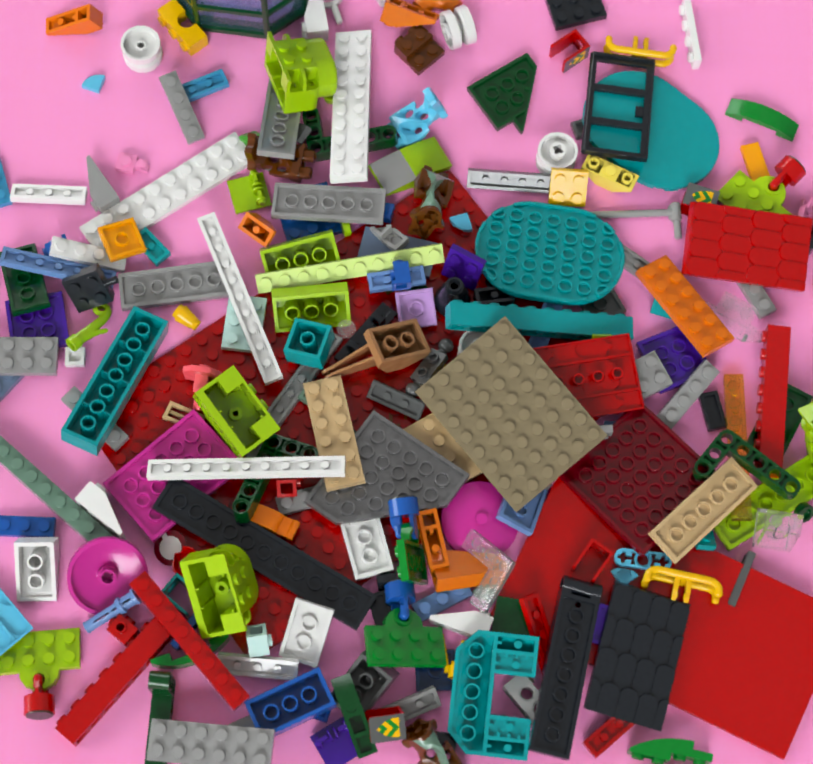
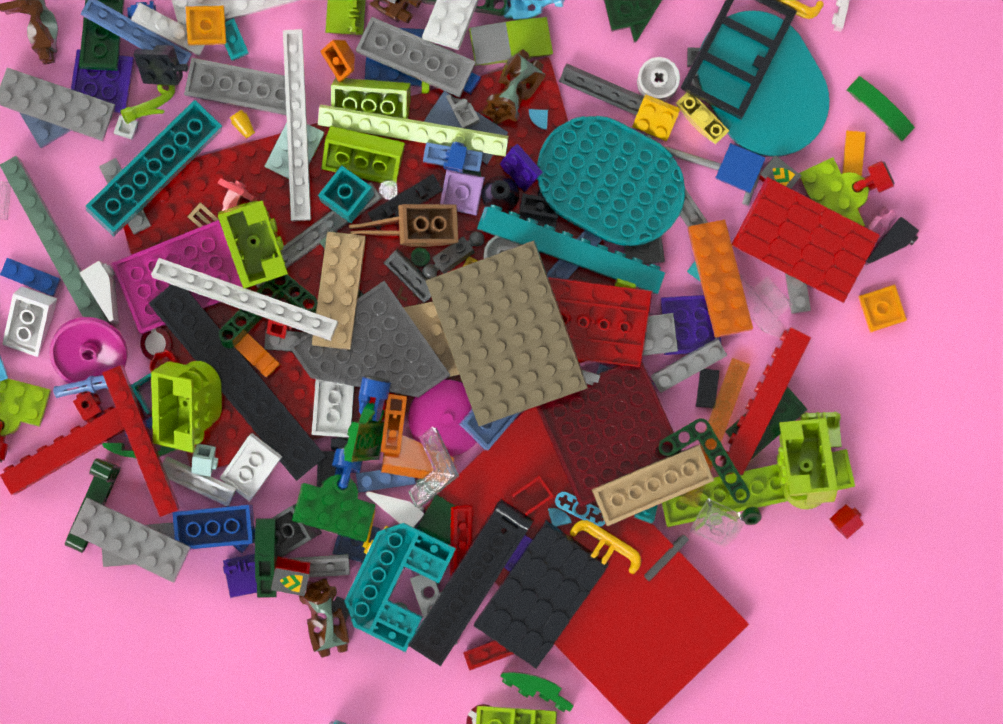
camera: 25 degrees right, 15 degrees up
(398, 380) = (420, 257): none -> dark green tile
(661, 206) = (740, 168): none -> blue tile

